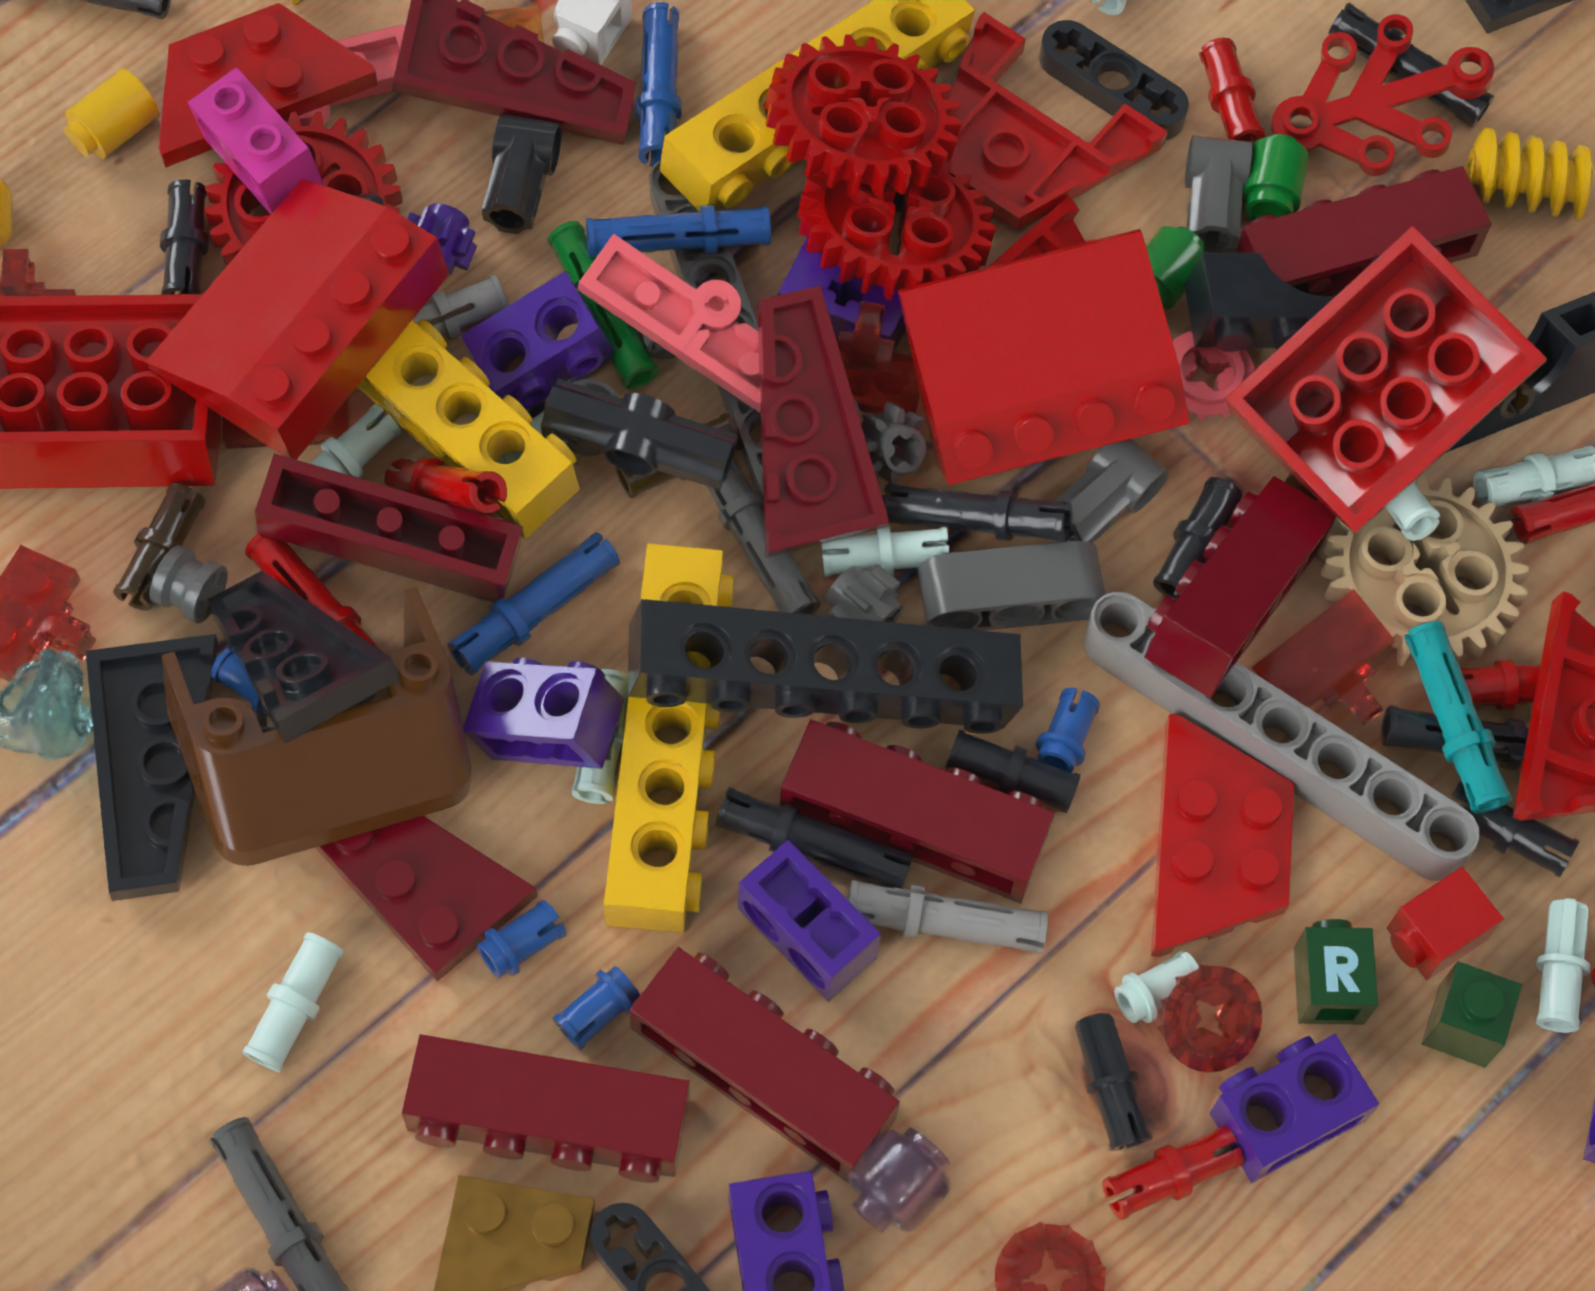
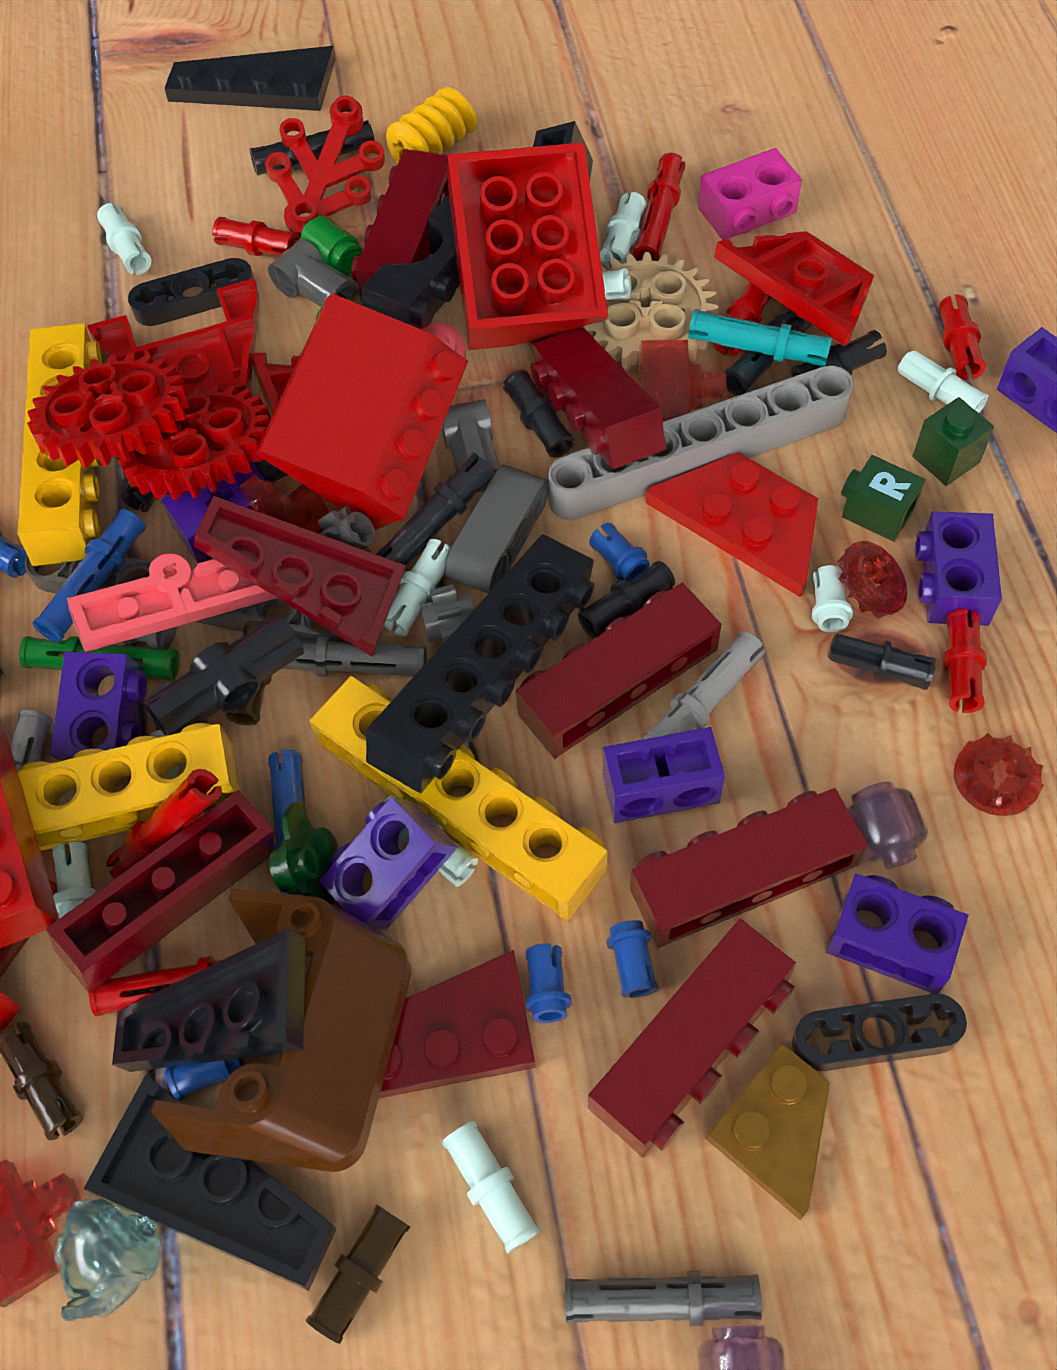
camera: 50 degrees left, 5 degrees down
(149, 932) = (357, 1274): none -> dark brown pin
(187, 583) = (87, 1073): dark grey wheel -> none
(502, 629) = (302, 855): none -> dark green plate
(814, 839) = (581, 755): black pin -> none
(1443, 924) = (883, 423): red brick -> none

